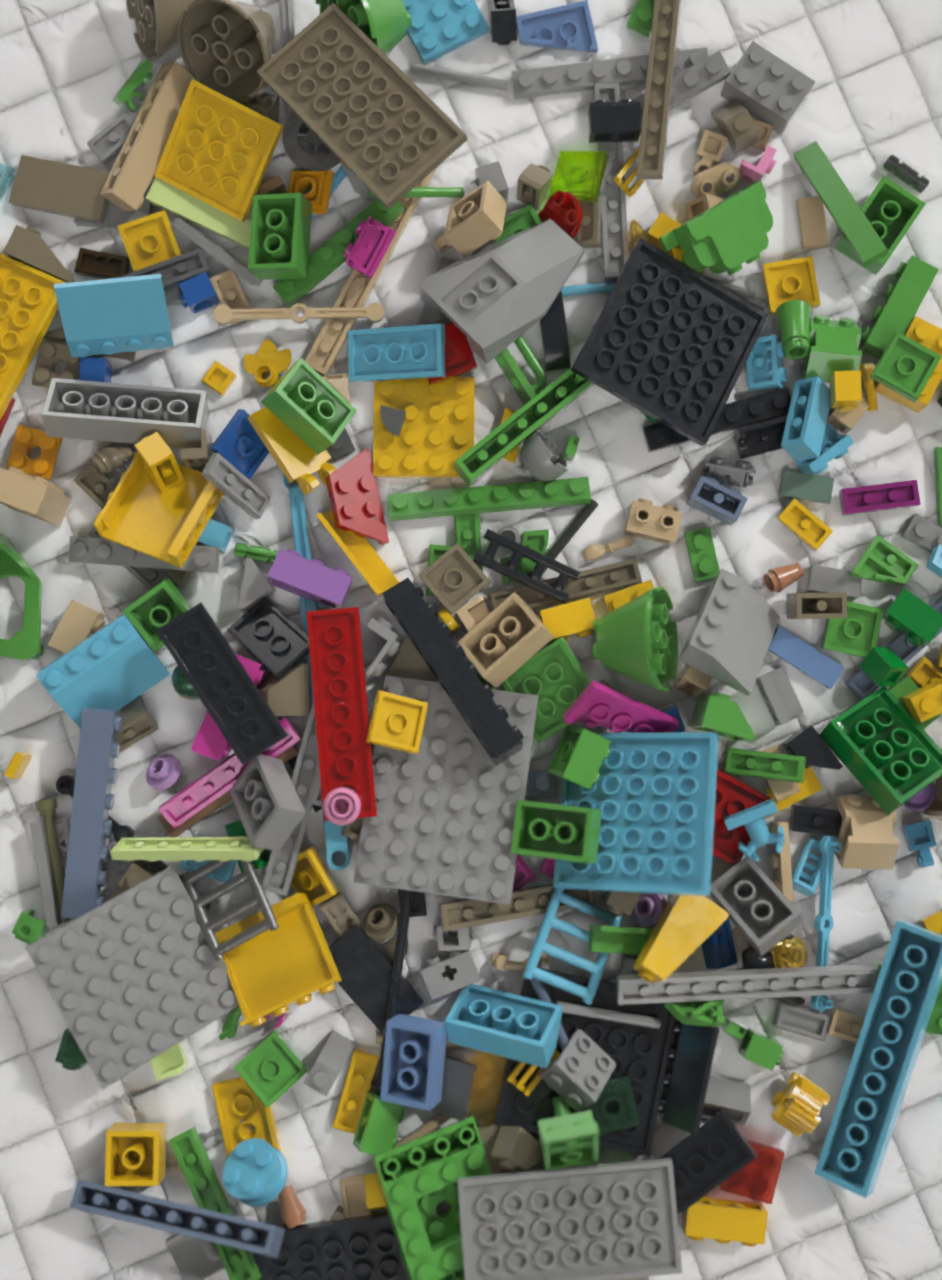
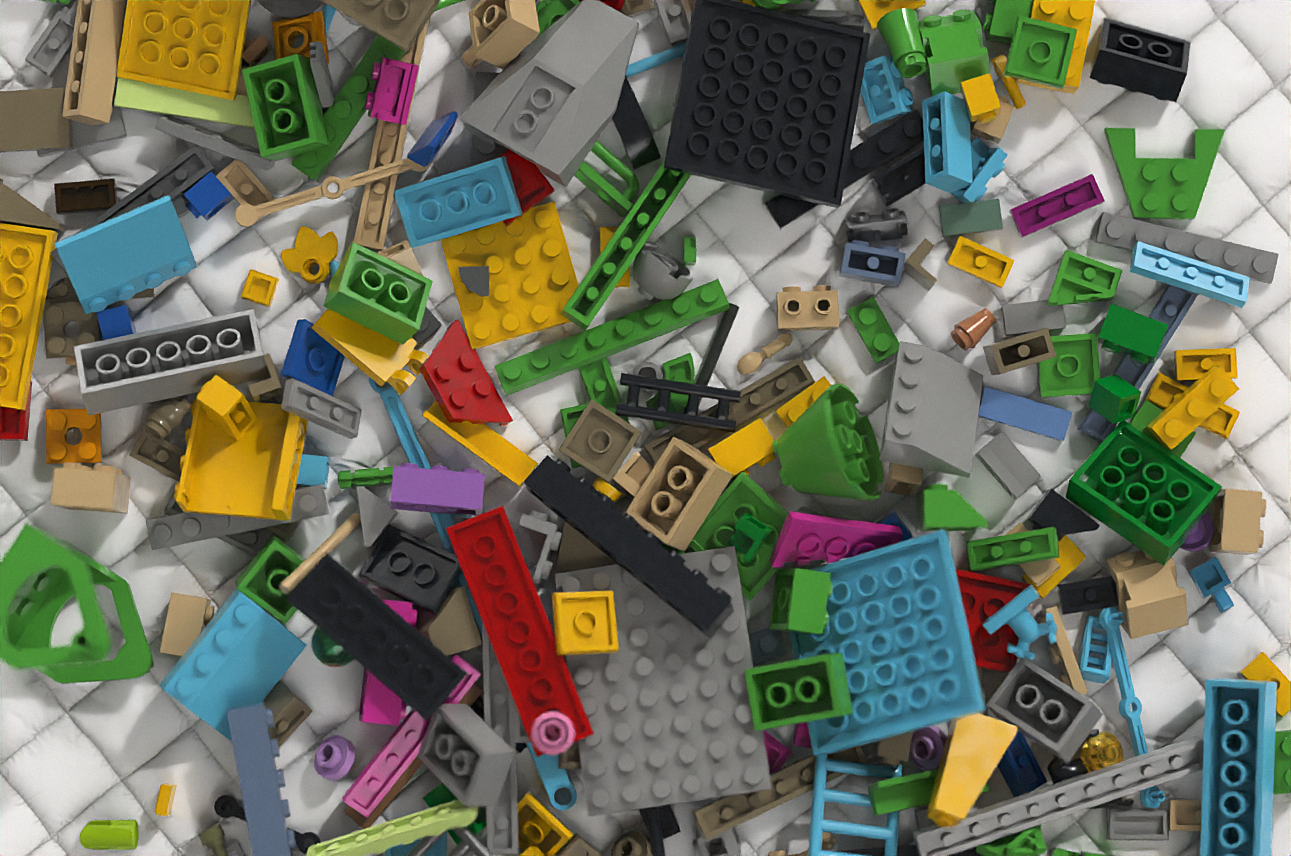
camera: 20 degrees left, 0 degrees up
(149, 240) = (134, 153): yellow plate -> none
(206, 600) = (326, 547): none -> tan bar
(317, 219) = (321, 74): none -> light grey tile
(391, 299) = (432, 139): none -> blue slope
(552, 691) = (749, 536): none -> green panel
(751, 515) = (915, 270): none -> dark tan panel

